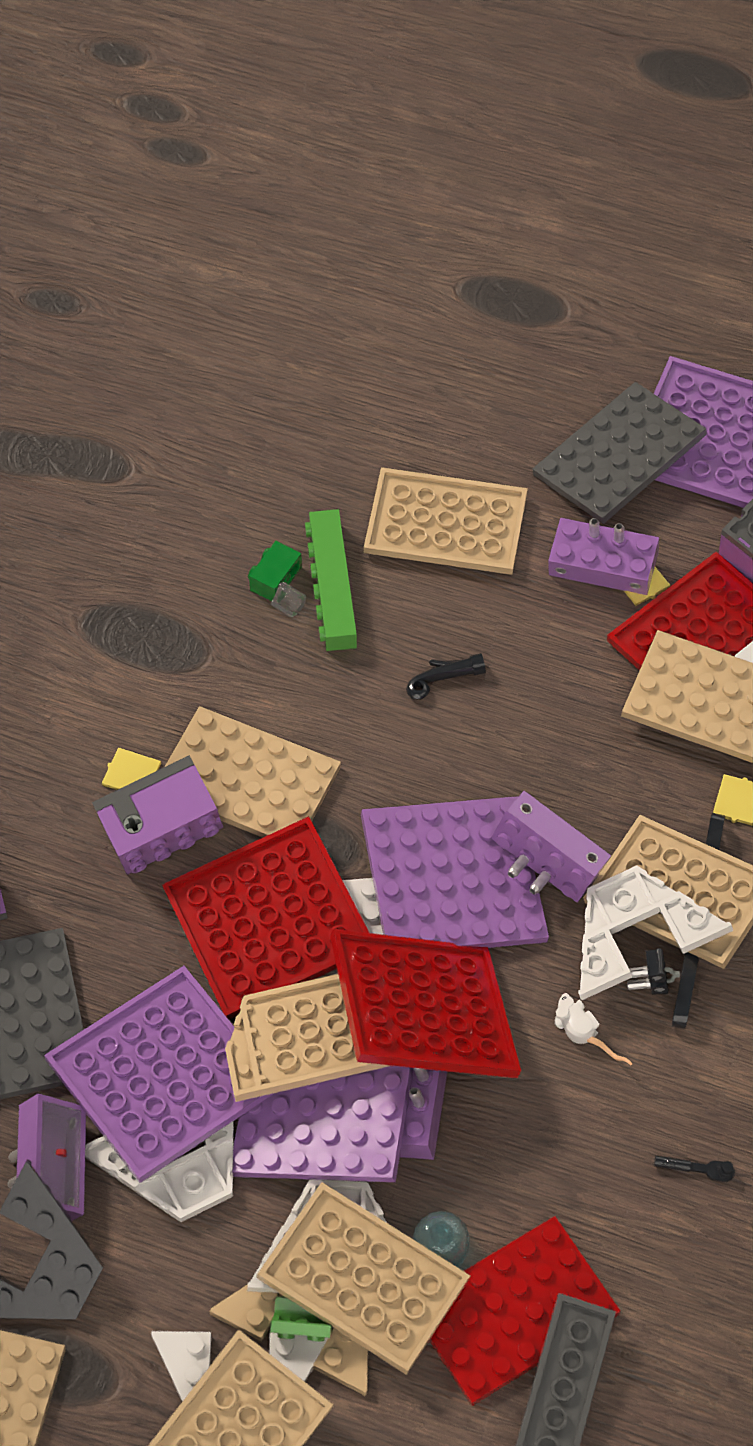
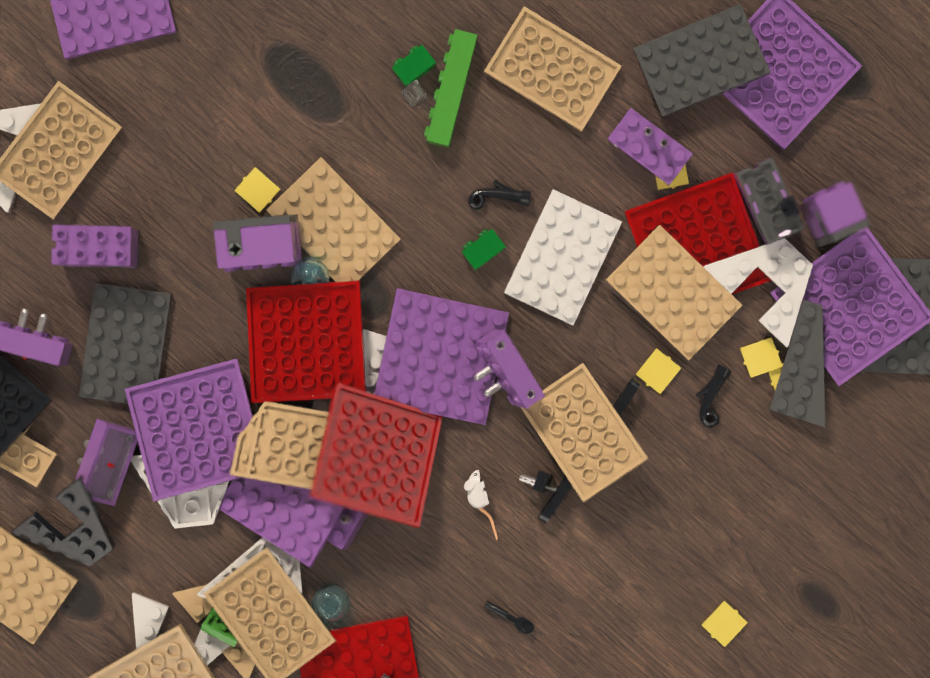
camera: 20 degrees right, 30 degrees up
(238, 832) = (309, 272): none -> clear light blue cylinder
(451, 736) = (483, 249): none -> green brick
(555, 715) = (562, 257): none -> white plate
(626, 901) = (542, 428): white wing -> none

